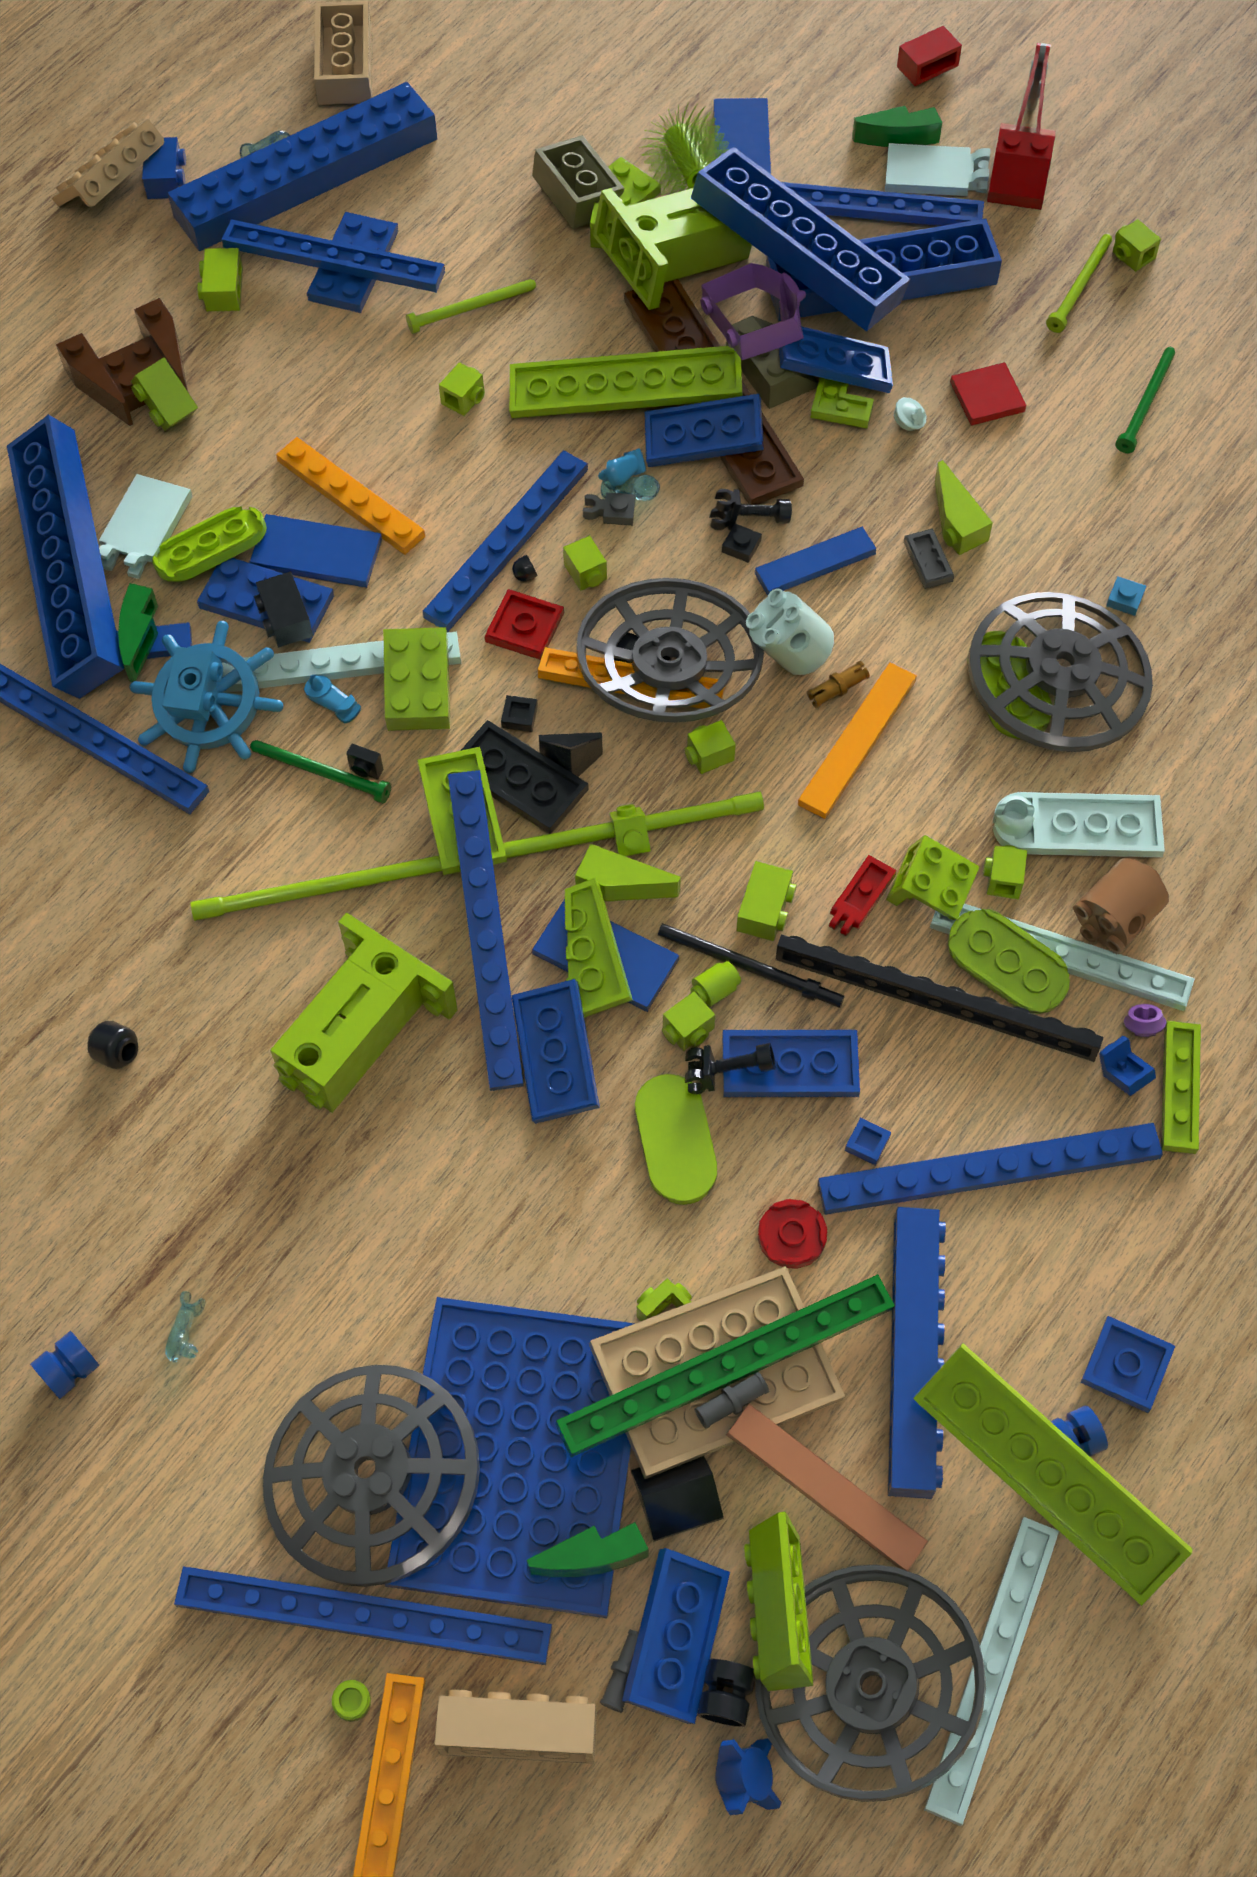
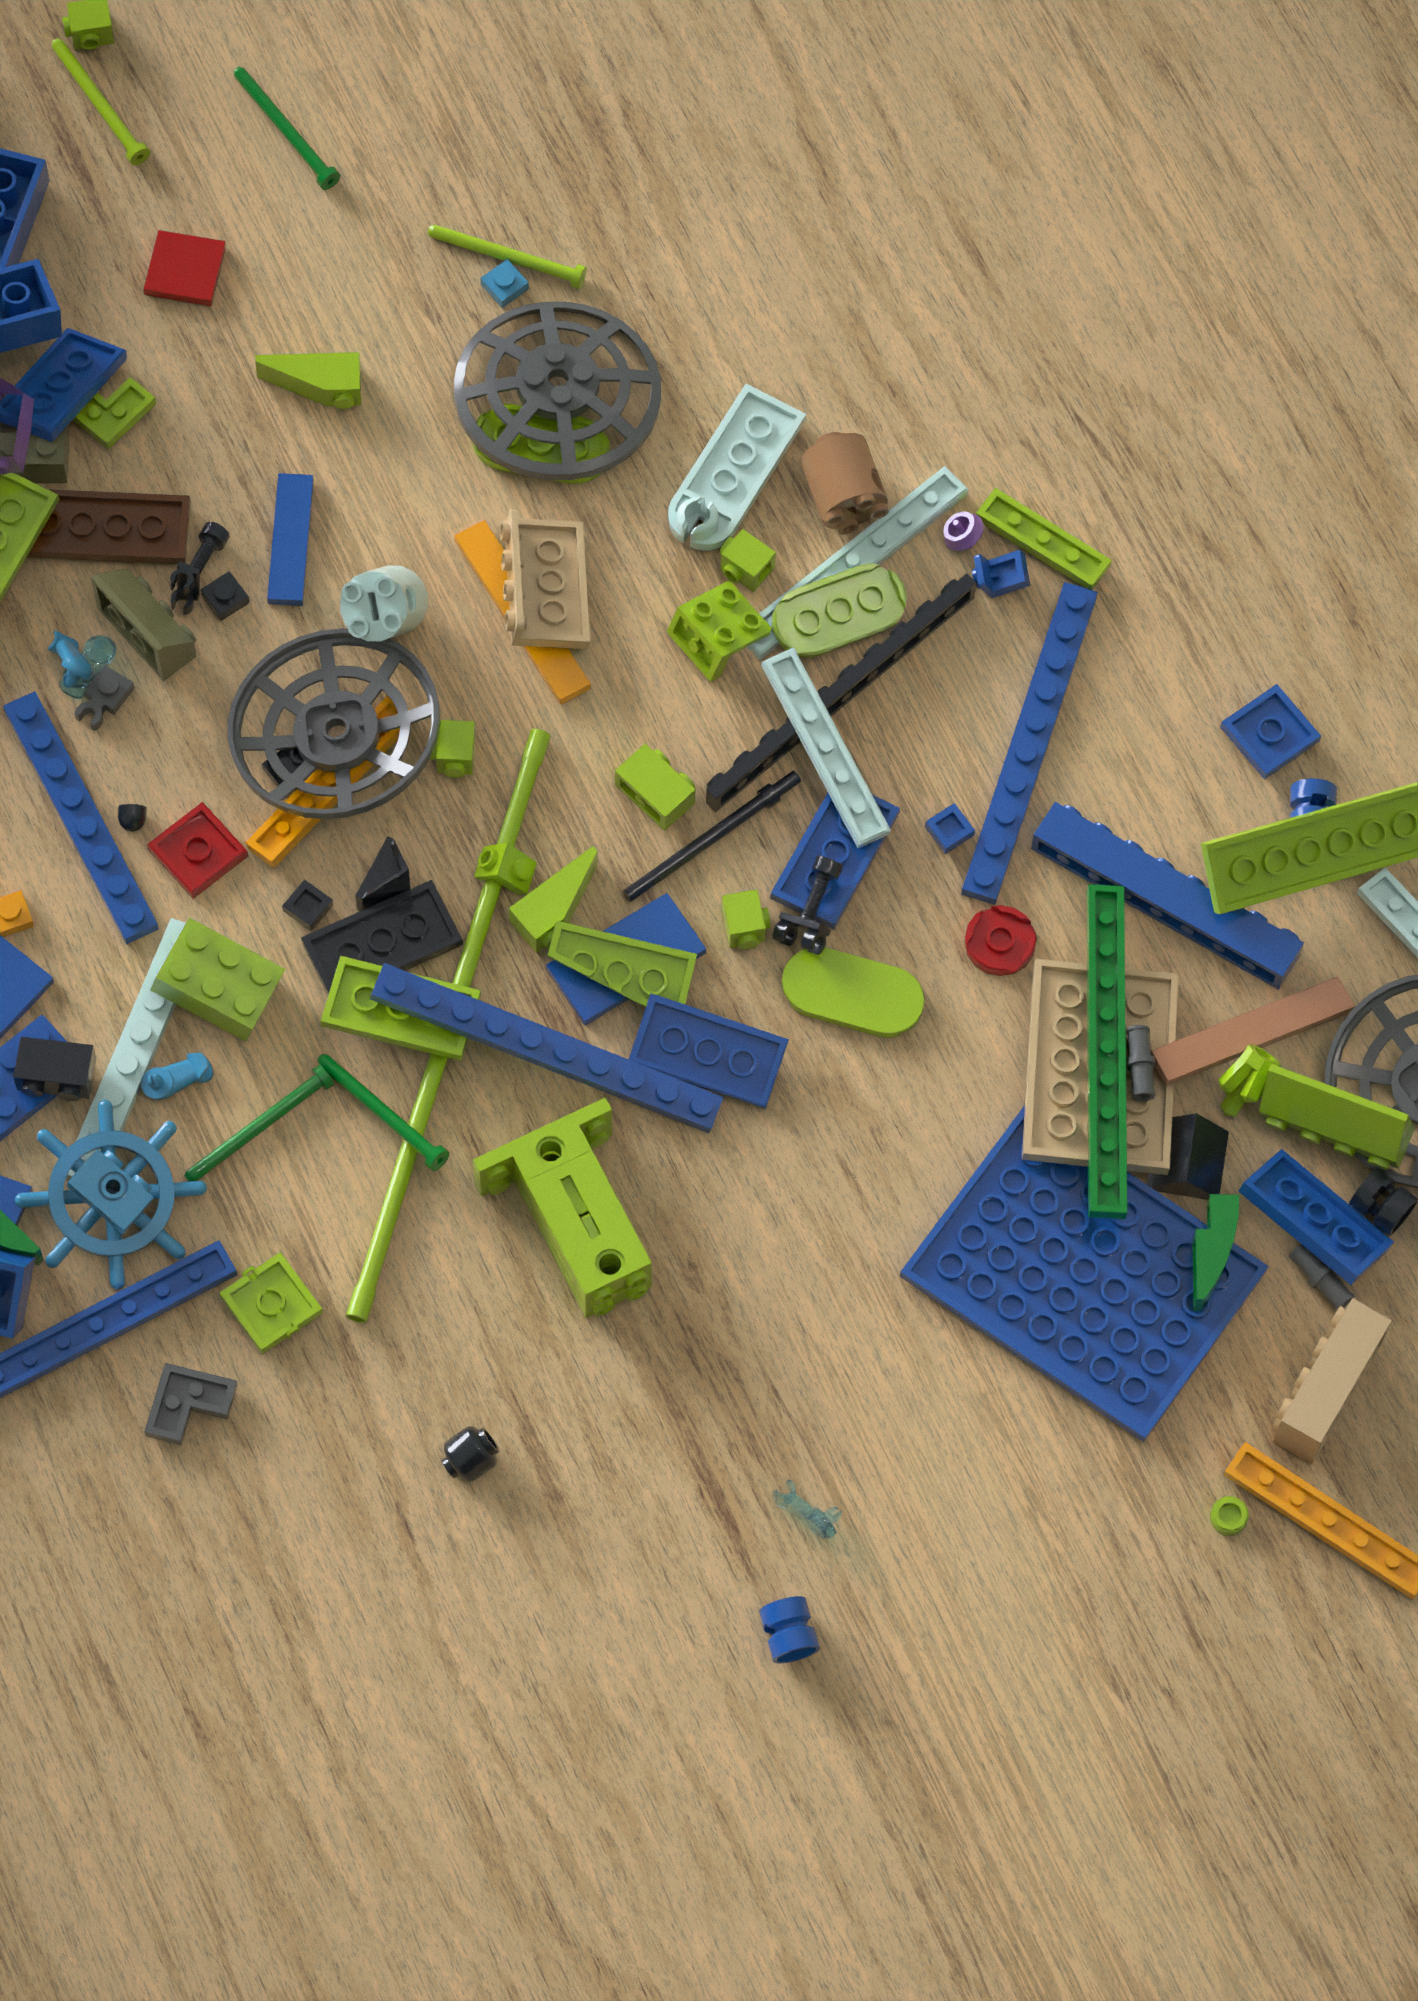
camera: 65 degrees left, 5 degrees up
(67, 821) = (186, 1391): none -> dark grey plate
(175, 846) = (271, 1302): none -> lime plate
(348, 893) = (434, 1156): none -> green bar
(364, 761) = (280, 1077): black plate -> none
(364, 1615) = (1160, 1472): blue plate -> none
(383, 1487) = (1042, 1427): dark grey dish -> none
(585, 563) = (165, 754): lime brick -> none
(655, 1301) = (1004, 1086): lime bracket -> none
(682, 496) = (144, 621): none -> olive slope
(703, 430) = (69, 553): blue tile -> none
(716, 983) = (716, 874): lime brick -> none
(774, 1498) = (1245, 1079): none -> lime rock
(838, 684) = (451, 595): pearl gold pin -> none
(861, 894) = (696, 699): red hinge -> none
(872, 1005) = (825, 748): none -> light aqua tile
(887, 736) = (545, 582): none -> tan bracket
(909, 414) = (168, 354): light aqua hat -> none
(928, 558) = (354, 434): dark grey plate -> none
(1167, 638) = (574, 275): none -> lime bar

